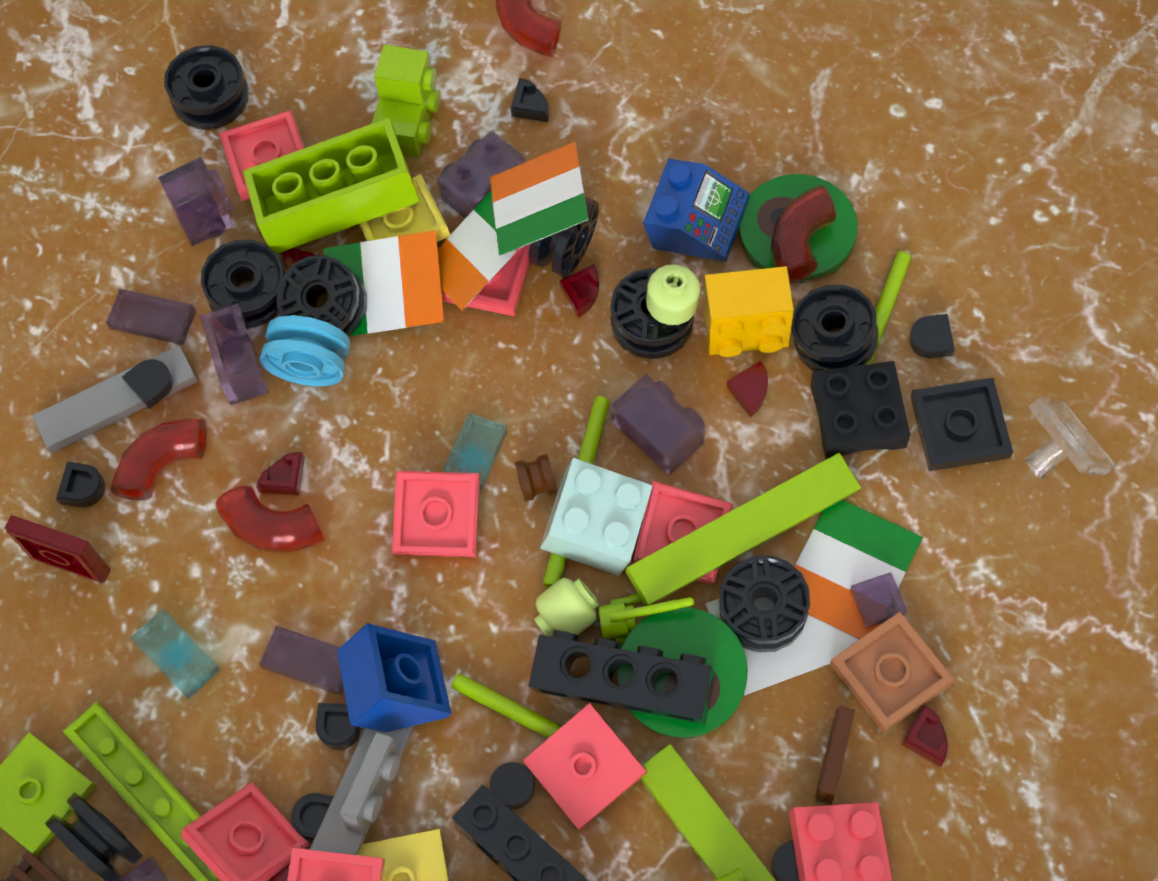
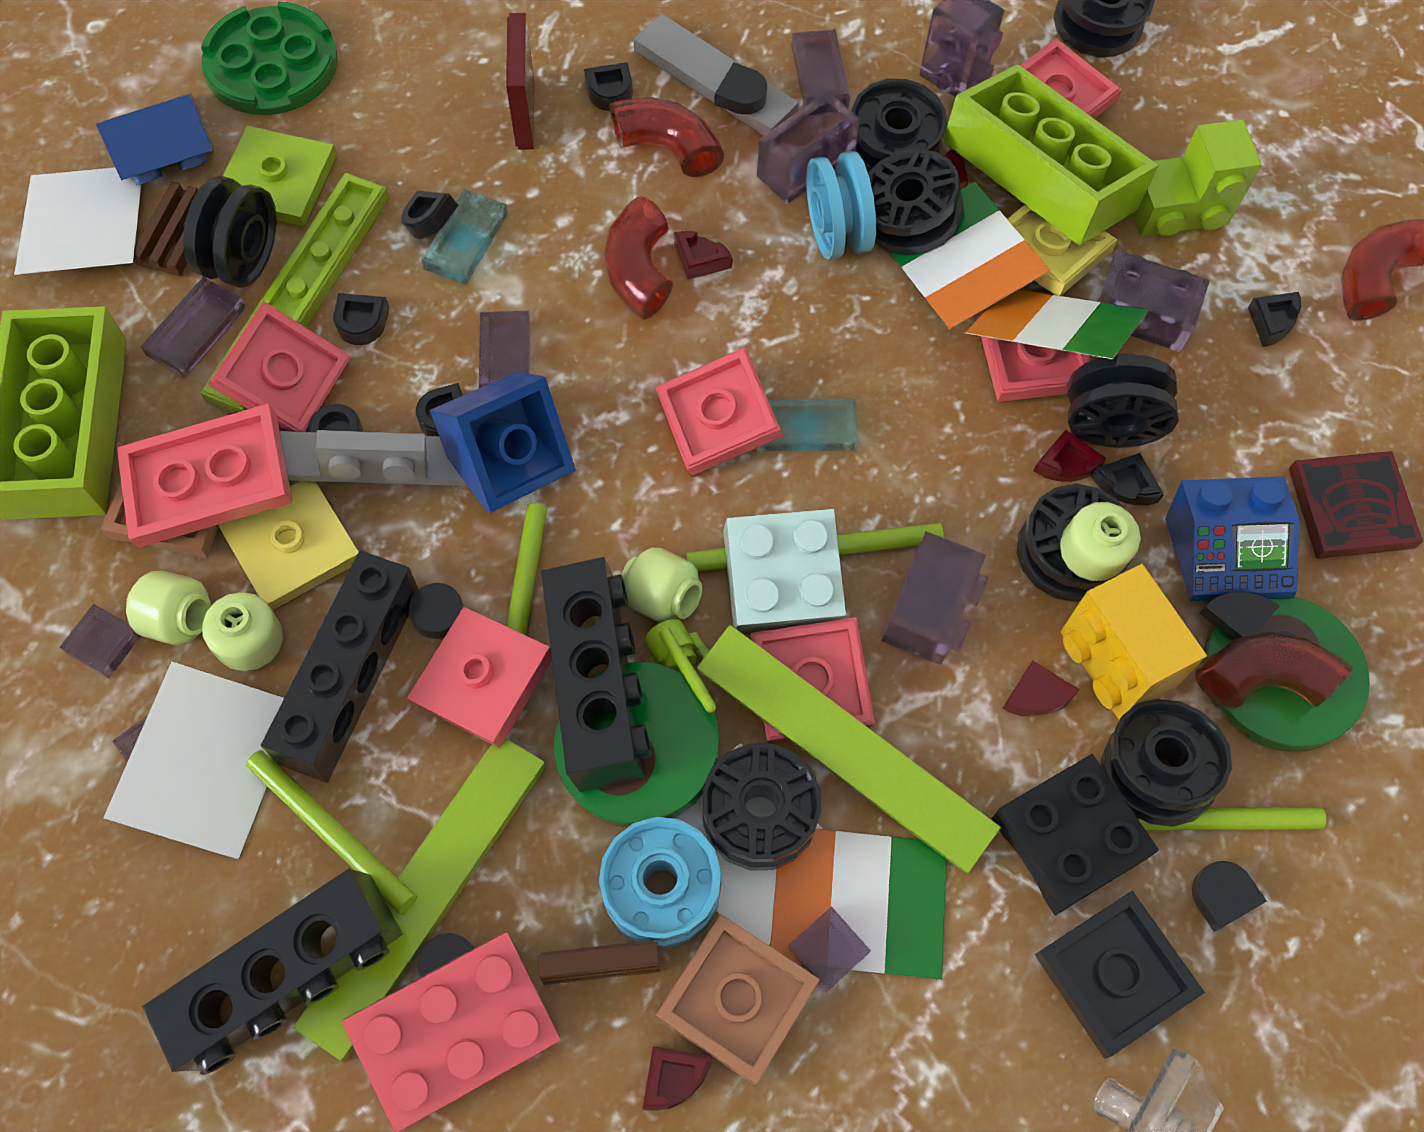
camera: 60 degrees right, 0 degrees up
(140, 675) = (427, 213): none -> black tile
(214, 765) = (360, 317): none -> black tile
(535, 477) = (805, 490): reddish brown wheel -> none
(538, 198) = (1141, 346): sticker -> none
(616, 257) = (1129, 481): none -> black tile
(696, 125) = (1355, 504): none -> tile
(751, 235) = (1239, 613): none -> black tile
(793, 666) = (655, 847): none -> medium azure wheel

